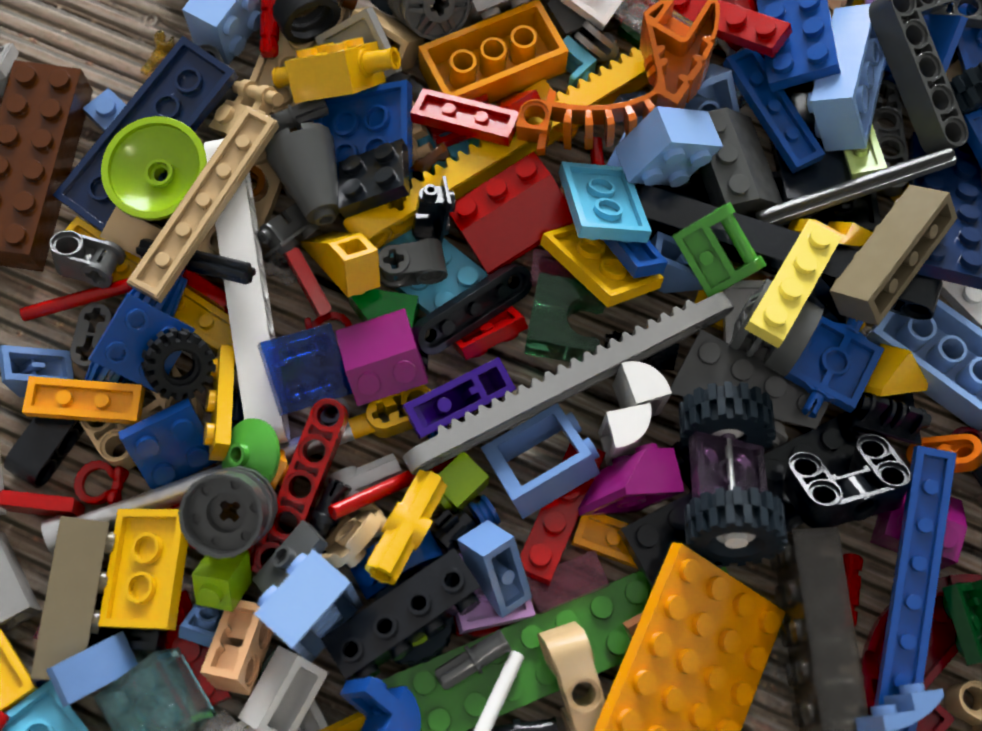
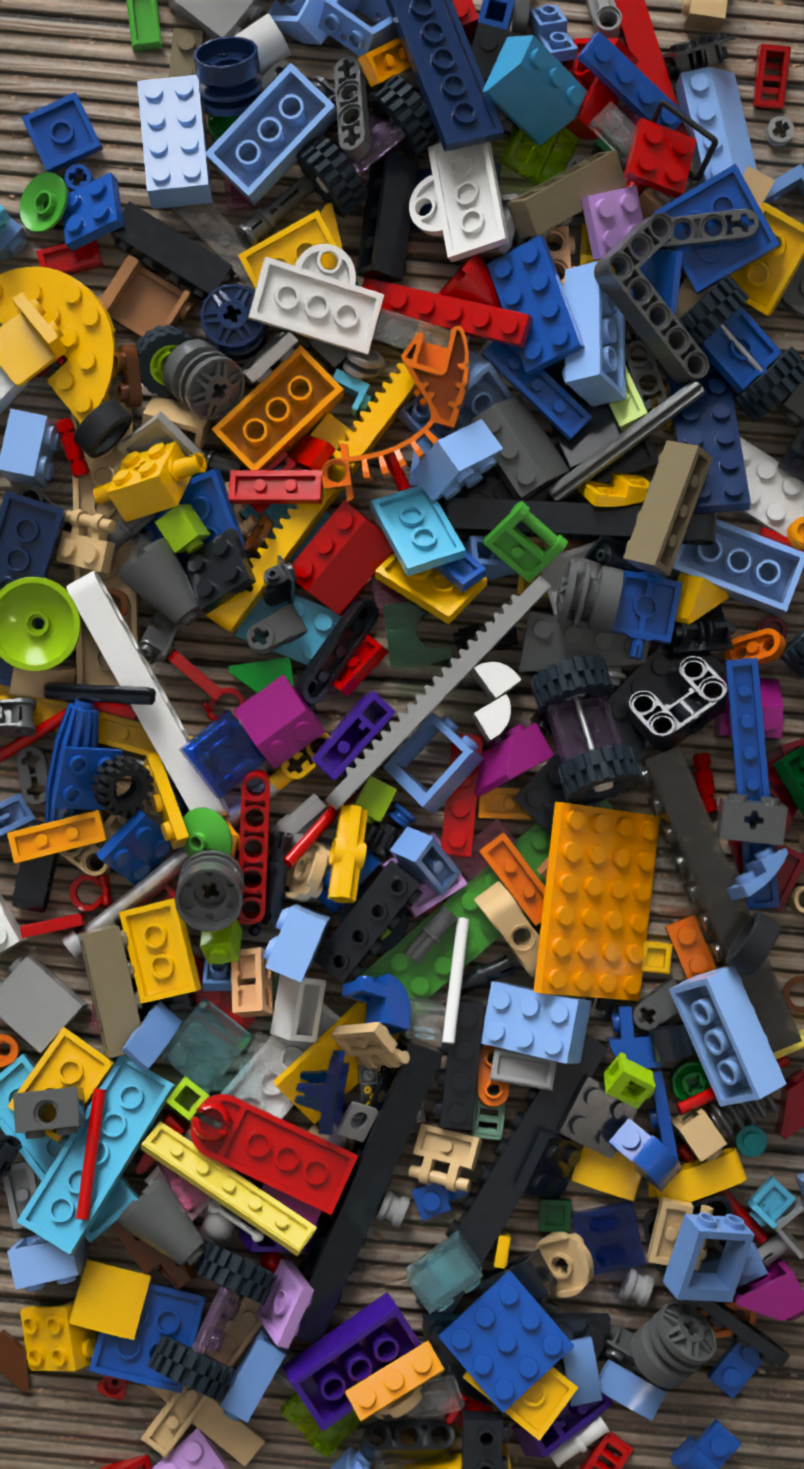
camera: 15 degrees left, 15 degrees up
(203, 204) = (90, 644): tan tile -> none
(301, 540) = (267, 909): dark grey plate -> none
(347, 260) = (218, 647): yellow slope -> none
(351, 127) = (183, 529): none -> lime brick
(598, 618) = (516, 876): none -> orange plate
(793, 284) = (592, 562): light yellow plate -> none
(929, 652) = (766, 830): none -> dark grey brick

